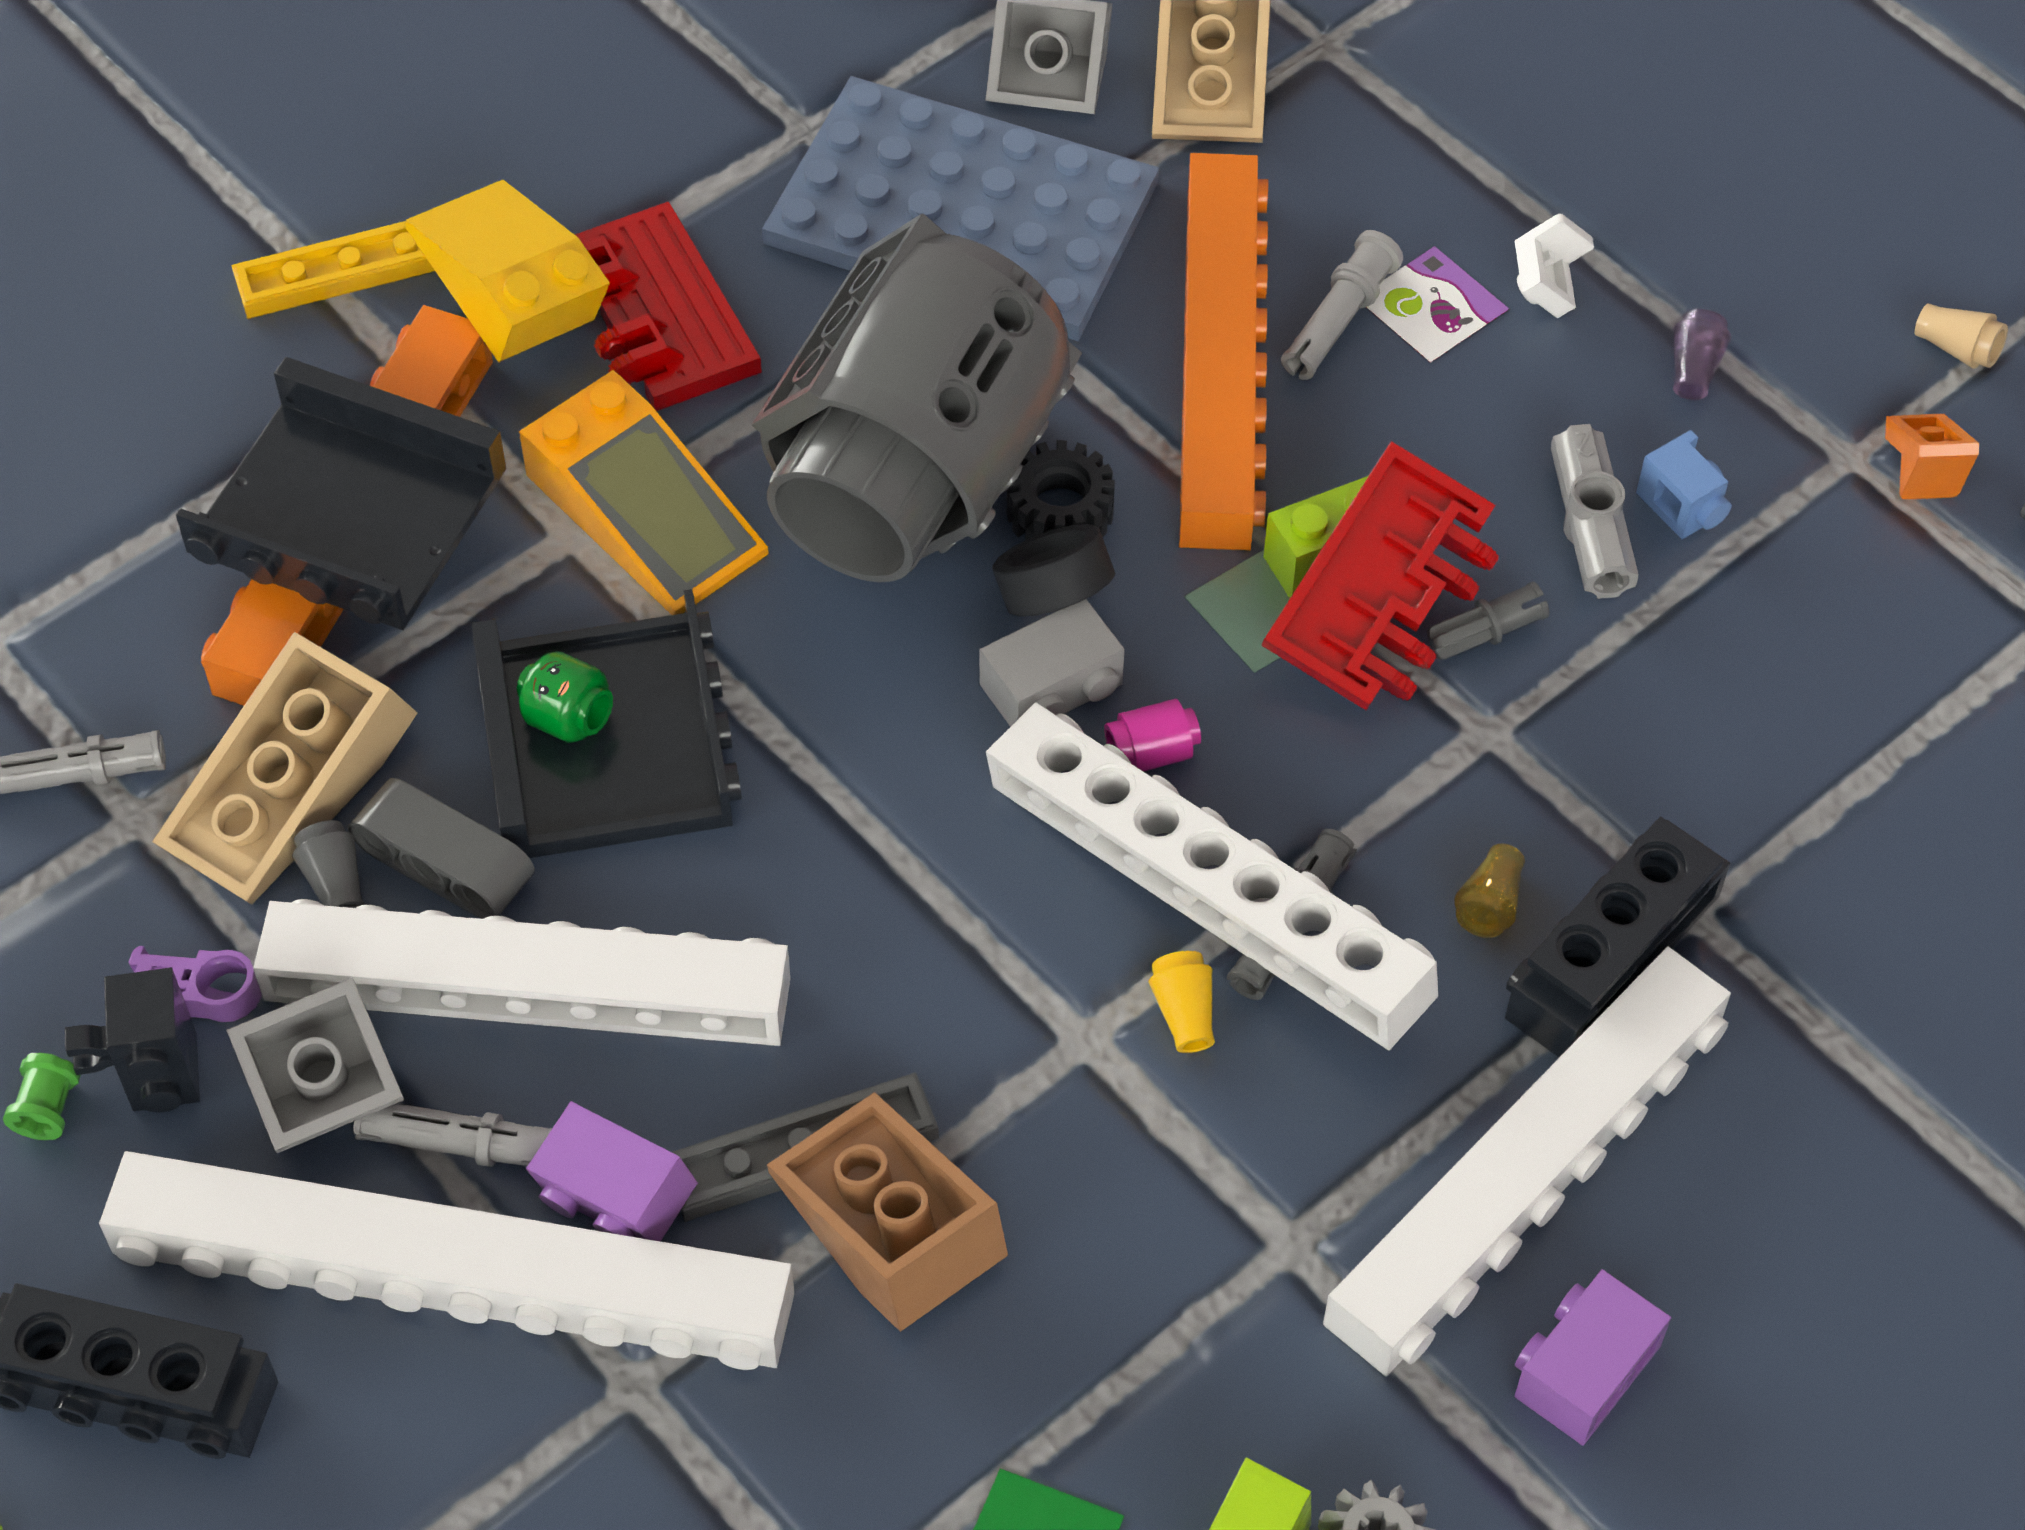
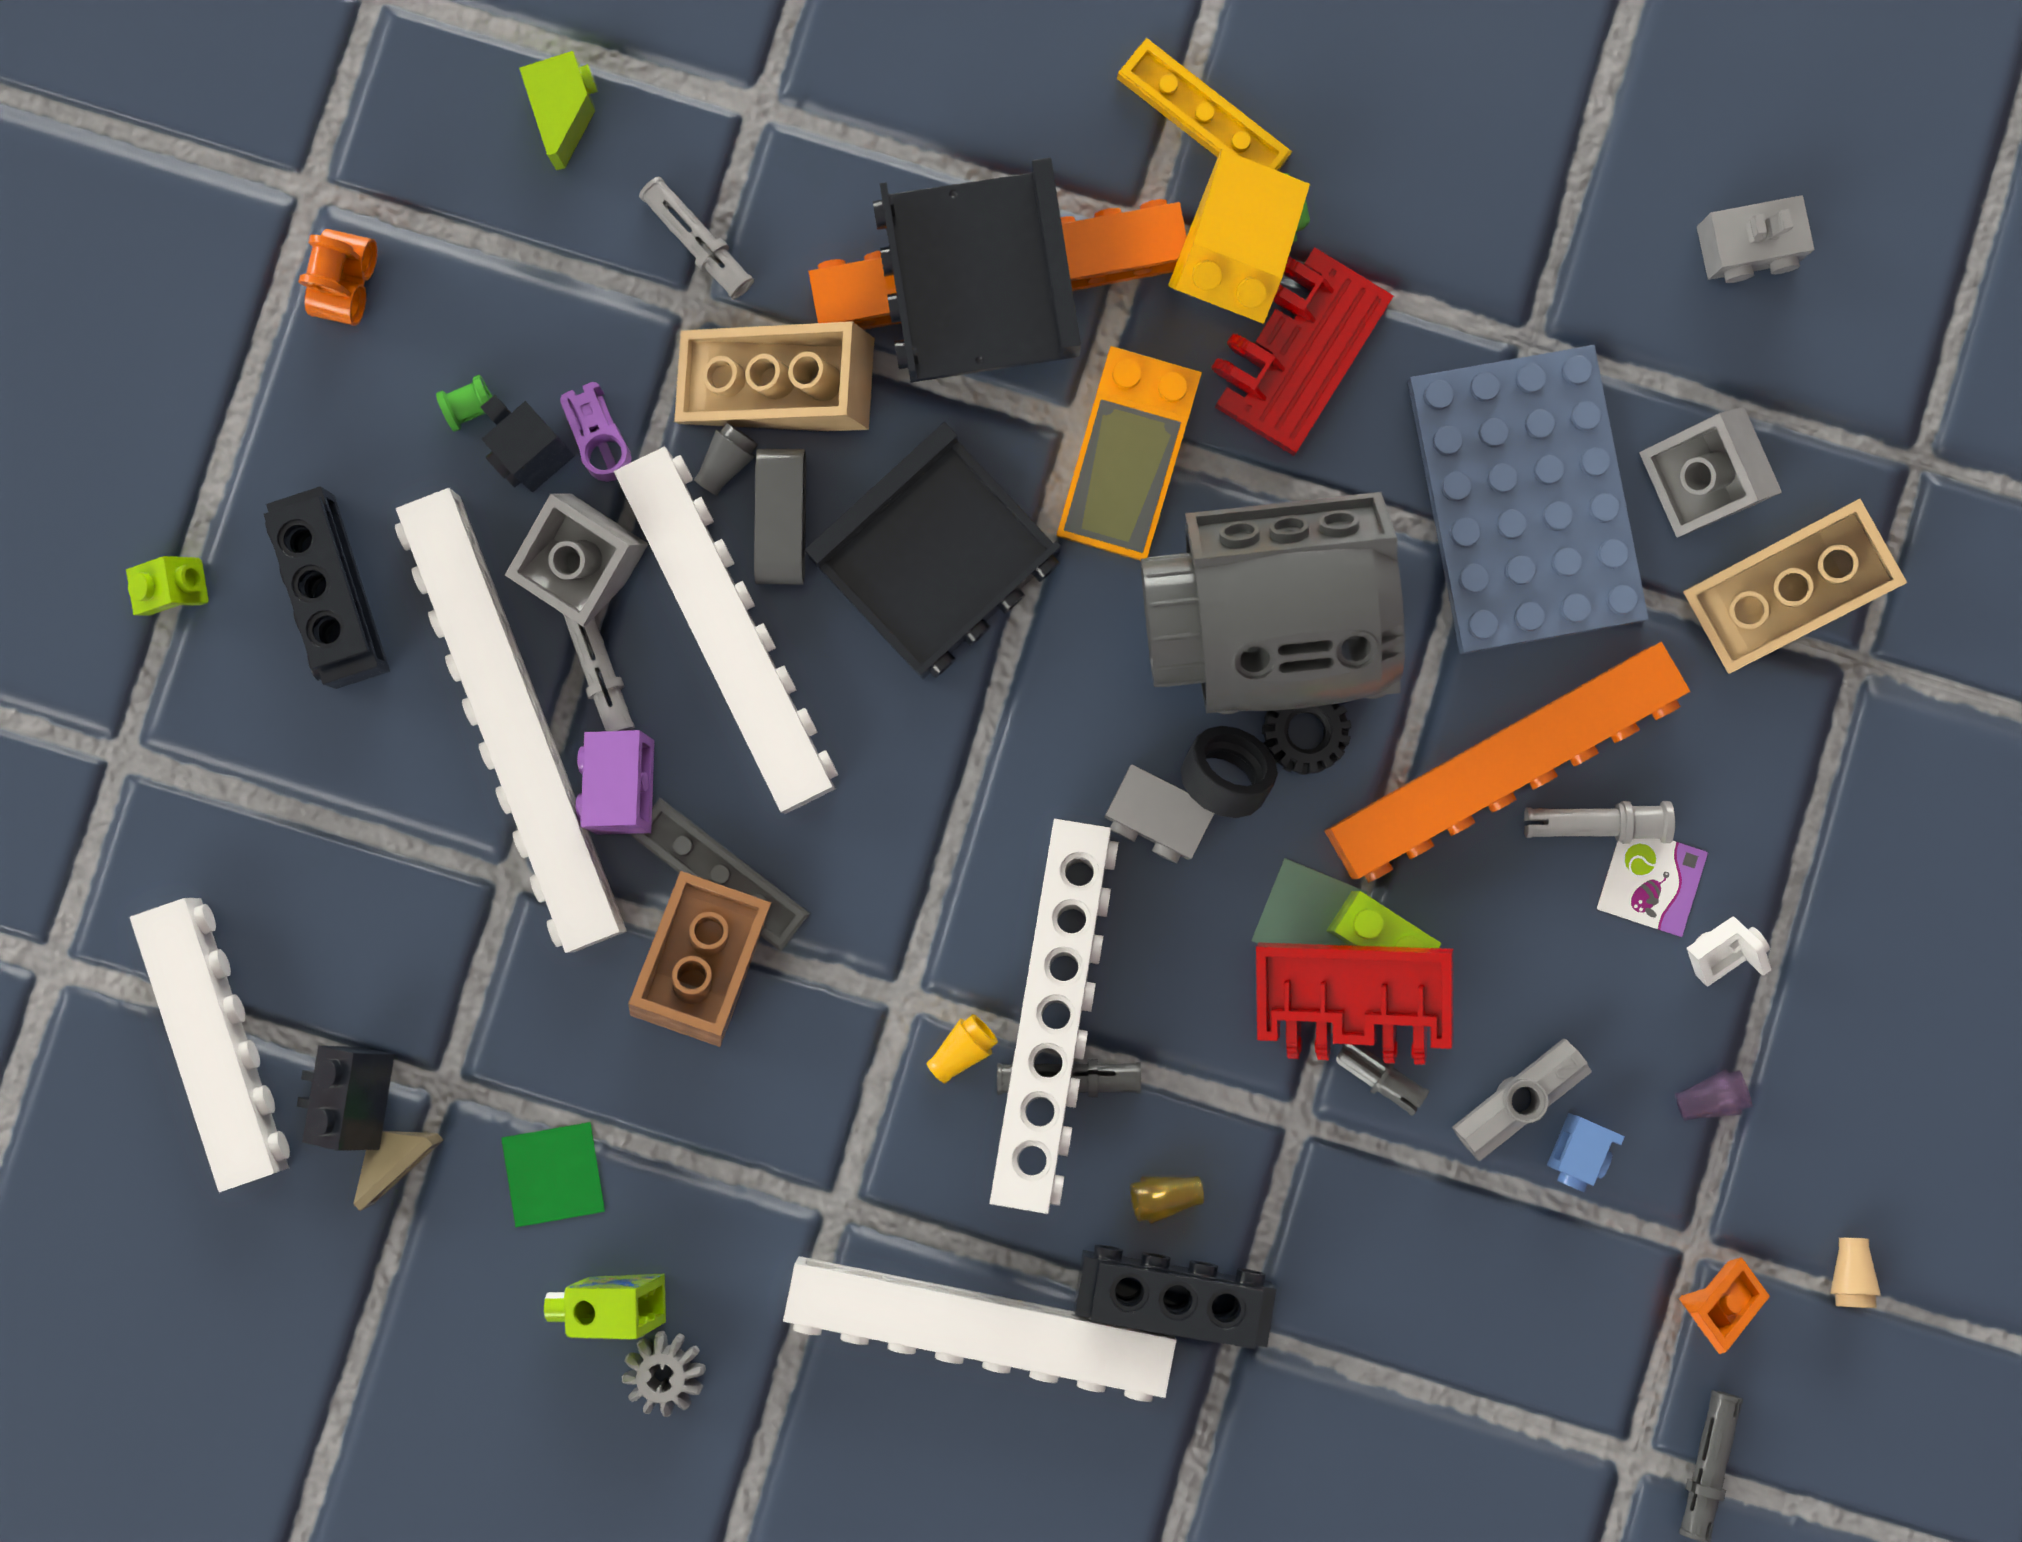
camera: 55 degrees right, 30 degrees up
(564, 697) = (931, 518): green head -> none
(1155, 734) = (1146, 911): dark pink brick -> none
(1590, 1355) = (862, 1434): medium lavender brick -> none

